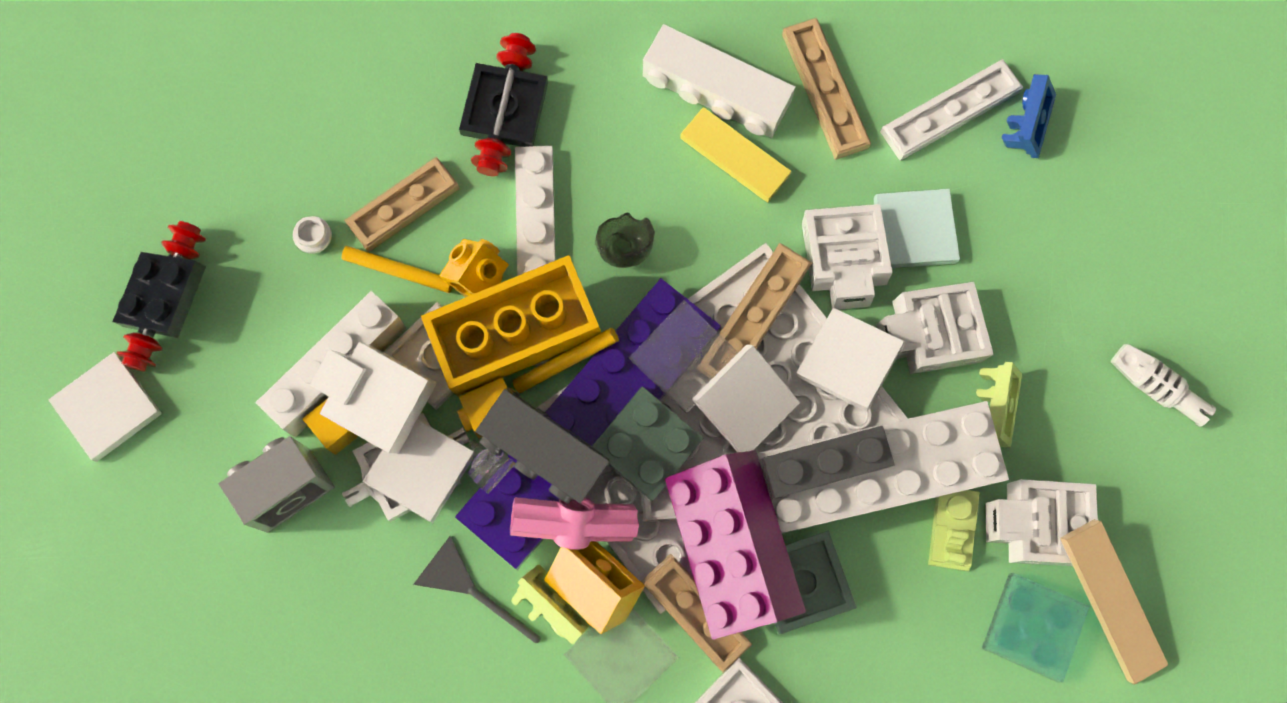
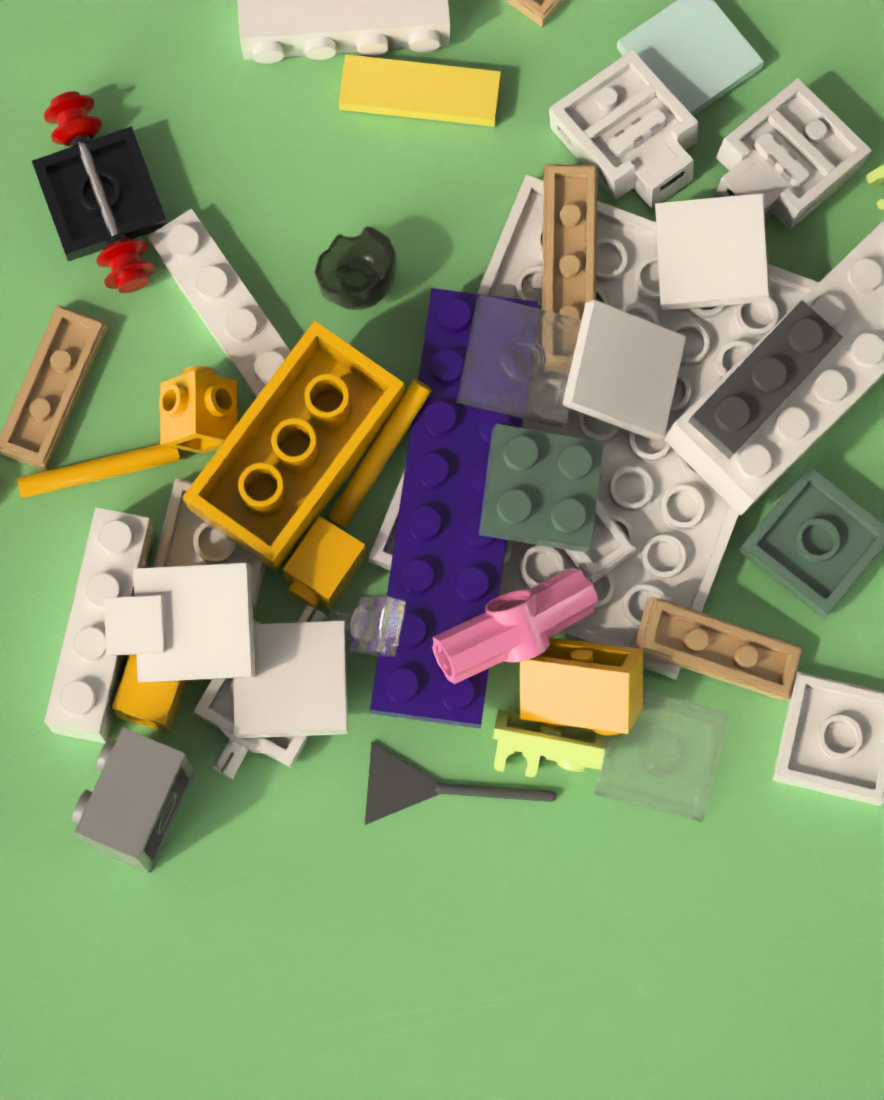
camera: 30 degrees left, 0 degrees up
(541, 447) = (428, 557): dark grey wedge -> none
(734, 544) = (716, 537): brick -> none

